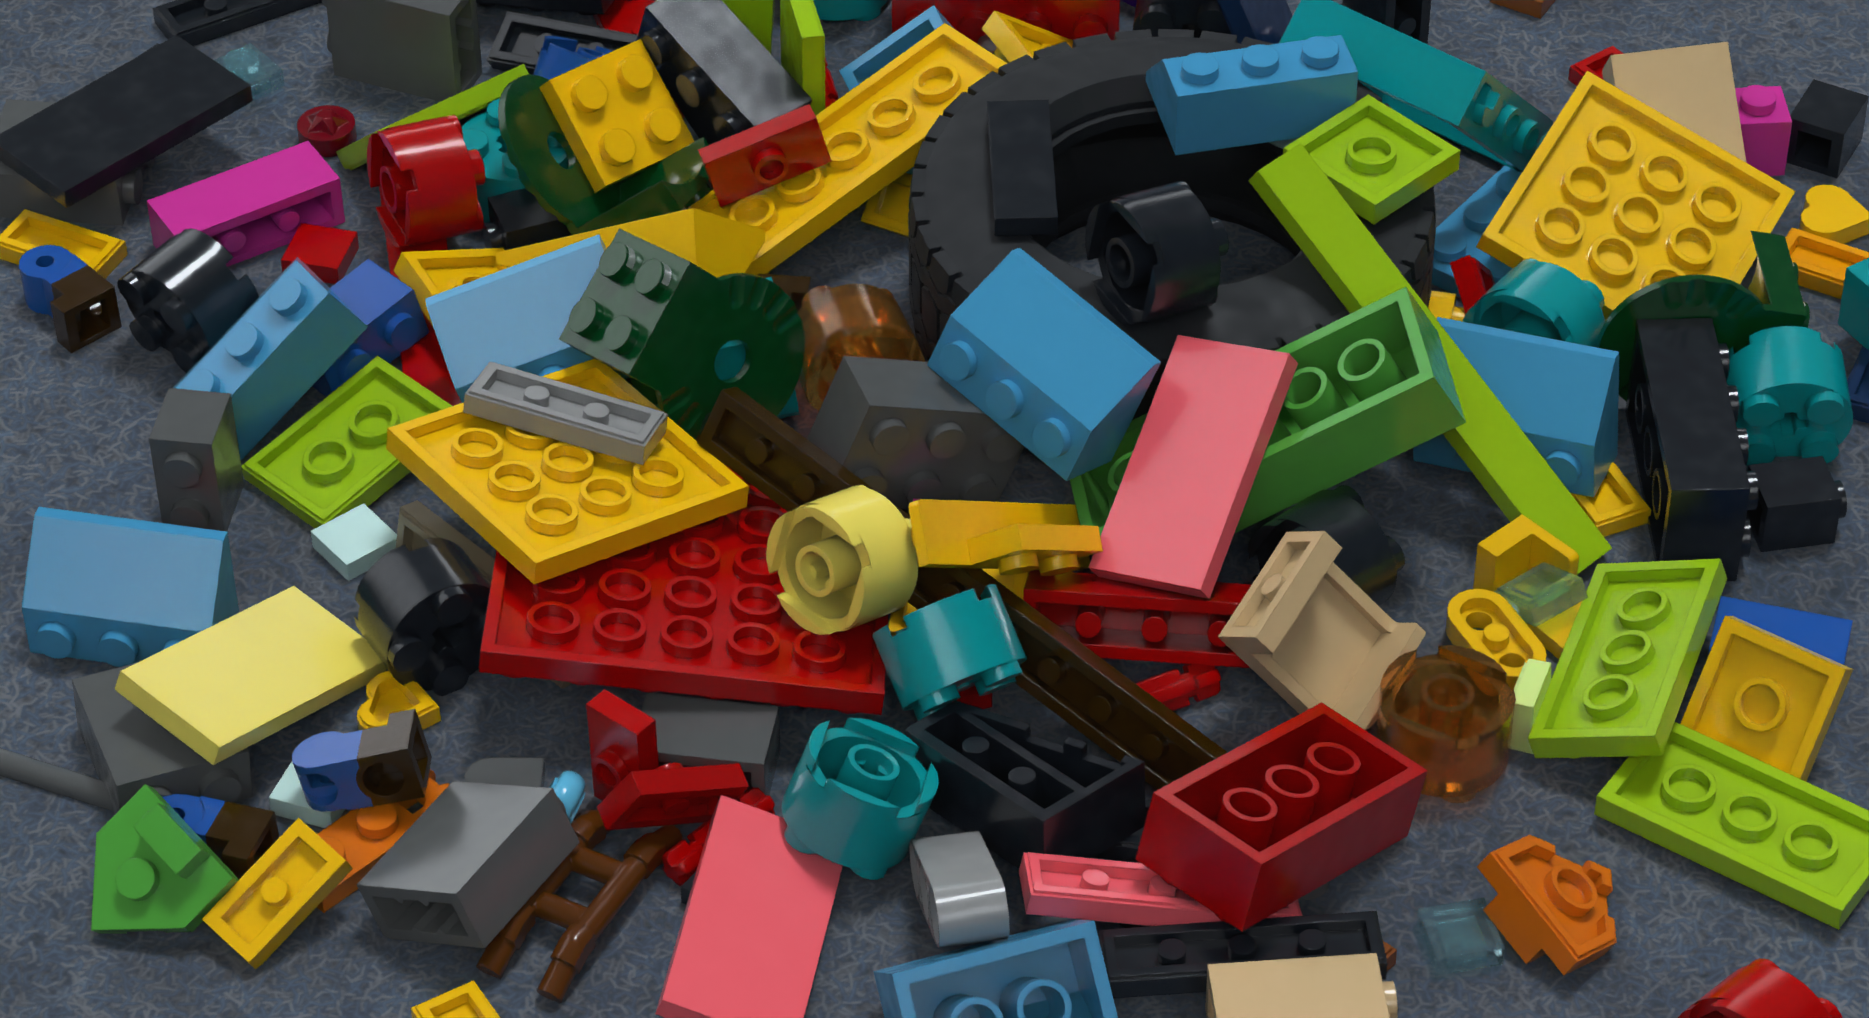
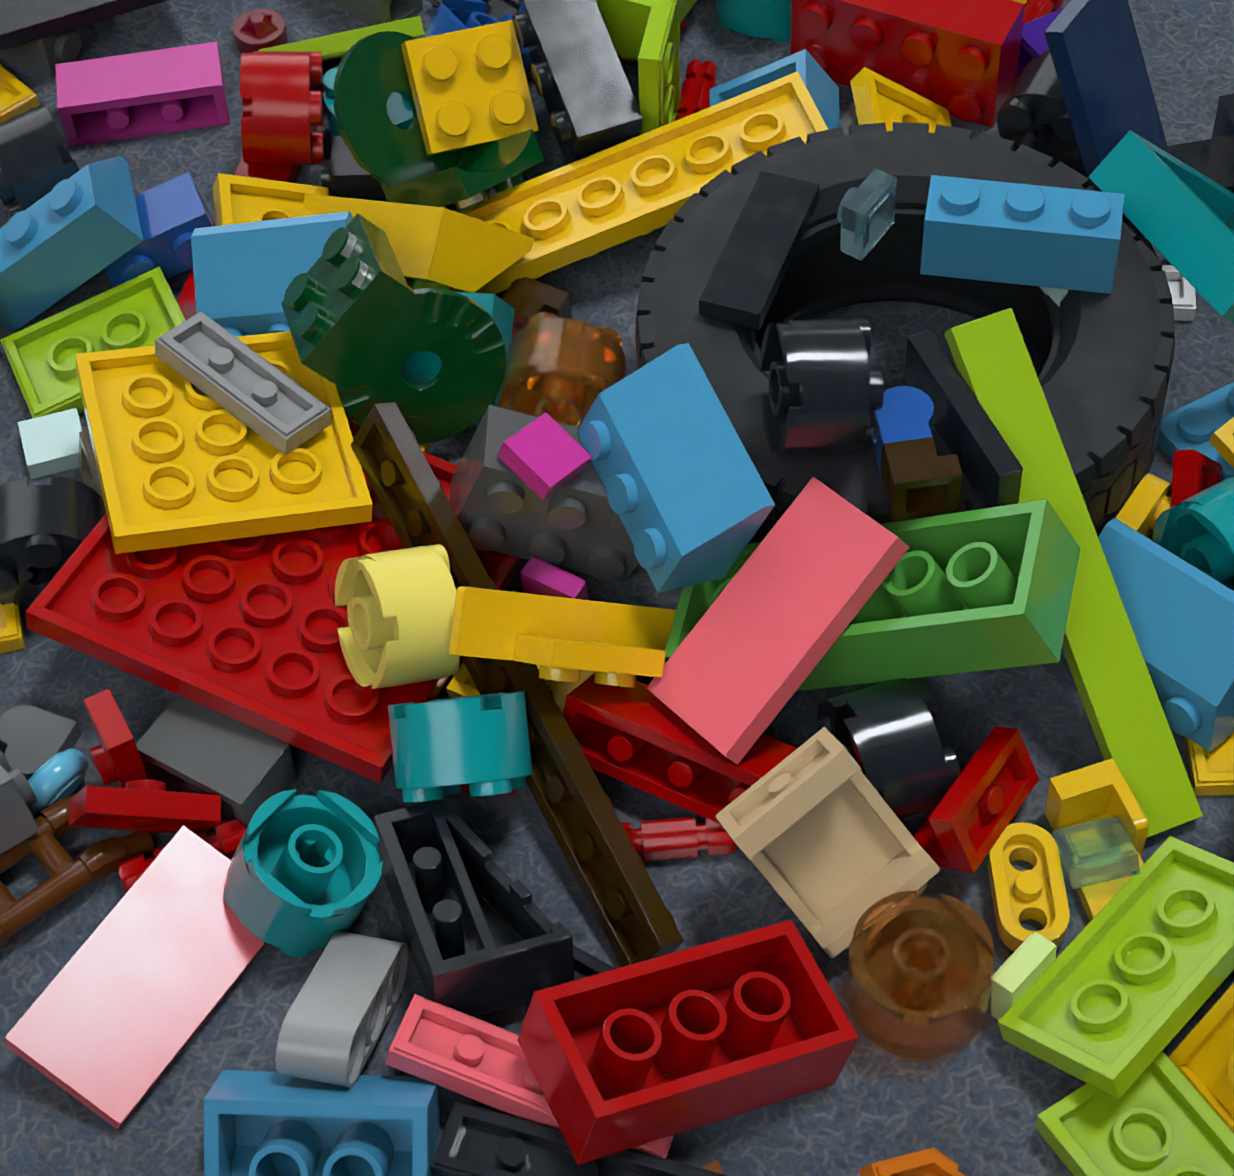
camera: 25 degrees right, 10 degrees up
(323, 250) = (187, 148): red tile -> none
(765, 155) = (570, 163): red plate -> none
(918, 385) = (544, 456): none -> dark pink tile
(1107, 112) = (867, 213): none -> clear light blue plate
(1263, 298) = (911, 472): none -> dark brown leg
(1291, 255) = (963, 422): none -> black tile
(1378, 157) = (1103, 335): lime plate -> none
(1427, 577) = (979, 802): none -> red panel

